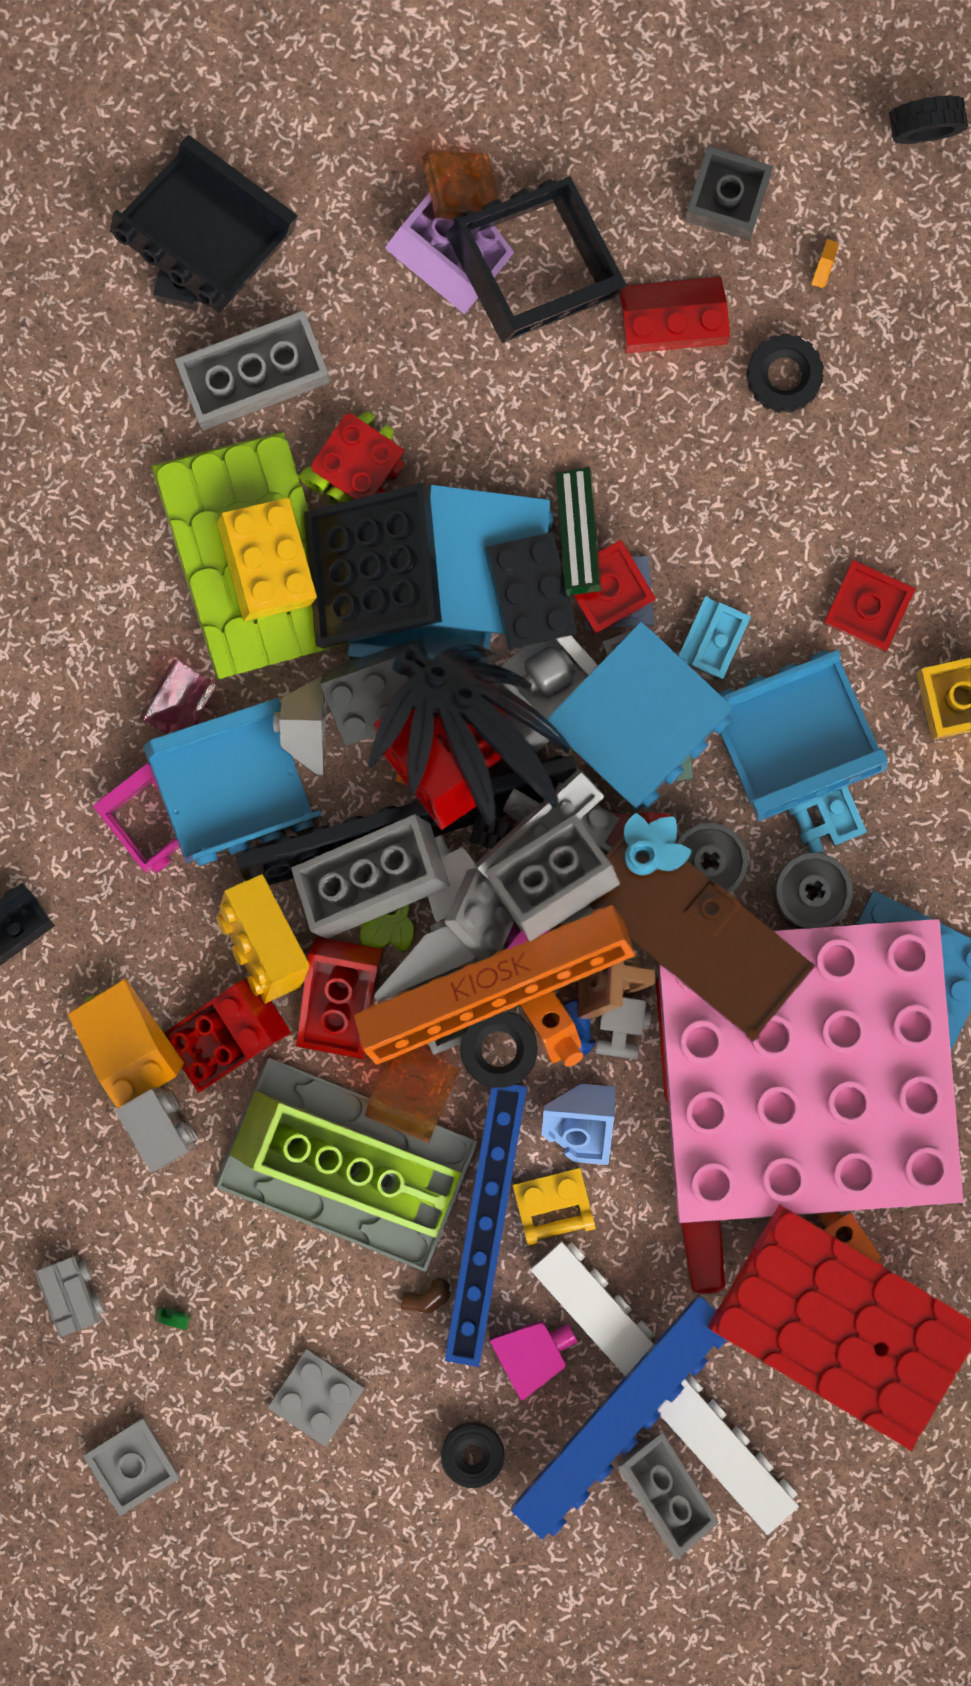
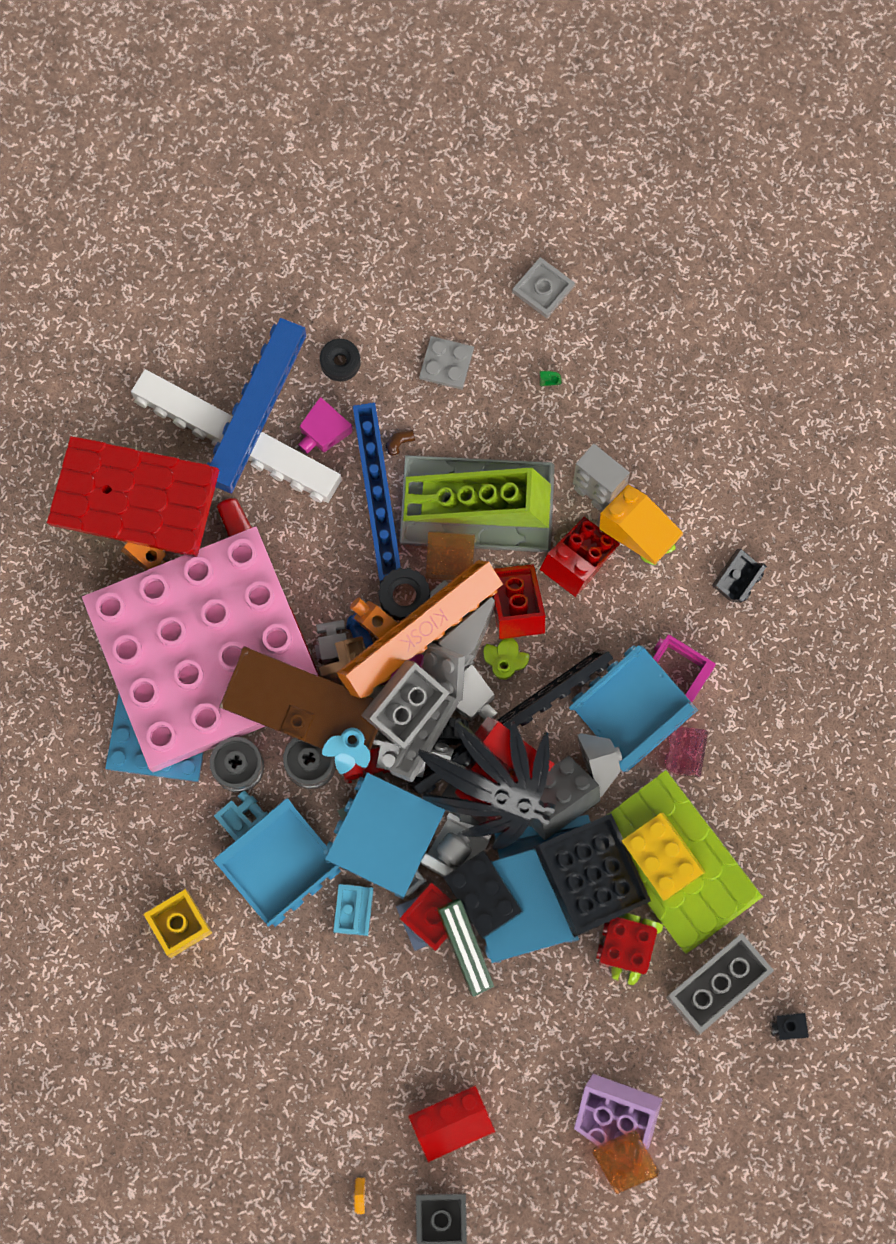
camera: 160 degrees right, 10 degrees down
(69, 1295) = (617, 370): light grey brick -> none
(204, 225) = (789, 1072): black panel -> none
(262, 939) = (578, 614): yellow brick -> none
(370, 877) = (523, 676): light grey brick -> none
(552, 1194) = (343, 526): yellow plate -> none
(582, 1122) = (337, 575): light blue slope -> none
(584, 234) = (529, 1156): black window -> none
(667, 1494) = (213, 370): light grey slope -> none
(789, 347) = (344, 1112): black tyre -> none
(869, 606) = (257, 966): red plate -> none

